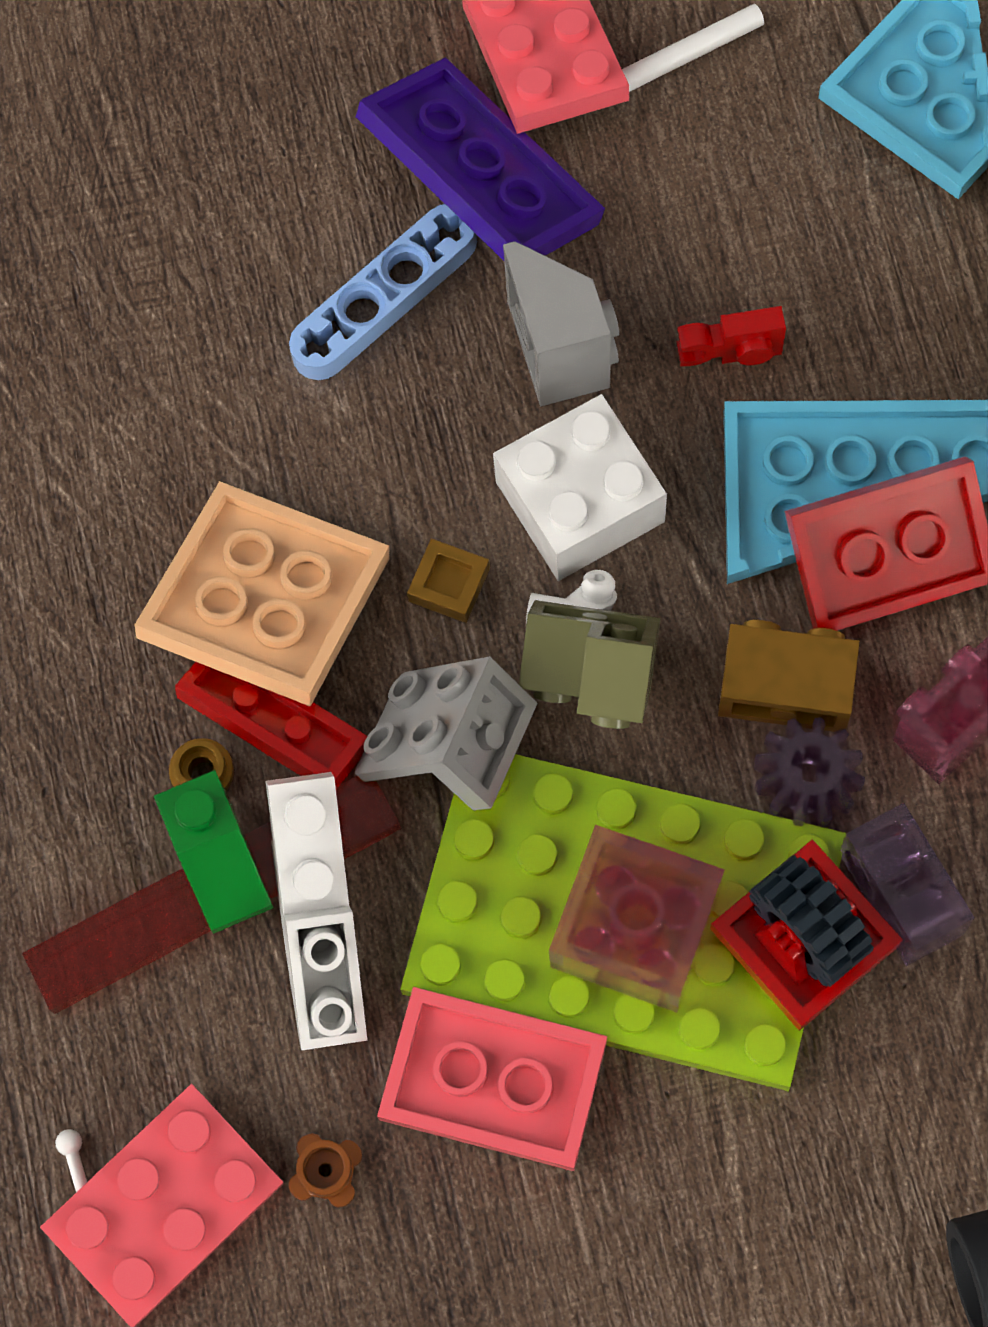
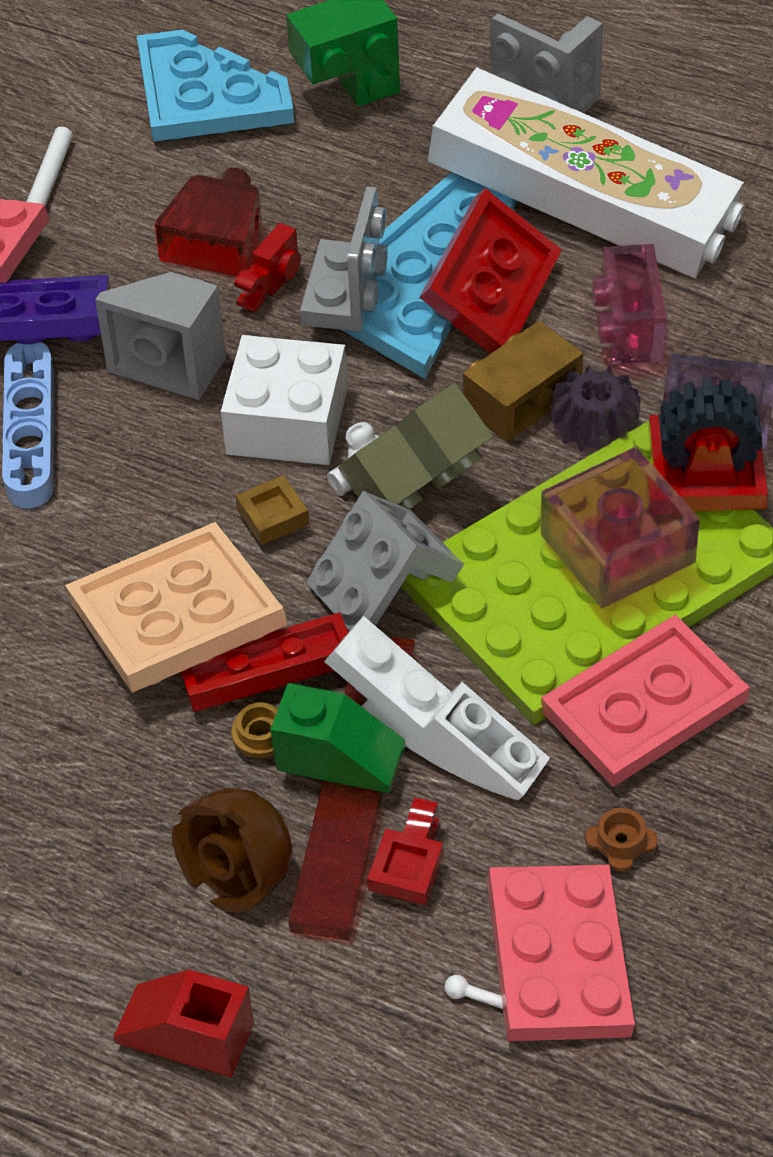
camera: 55 degrees left, 20 degrees down
(53, 854) = (233, 846): none -> reddish brown cylinder
(155, 1003) = (409, 859): none -> red plate
(751, 242) = (212, 223): none -> clear red torso
(762, 421) = (345, 273): none -> light grey bracket

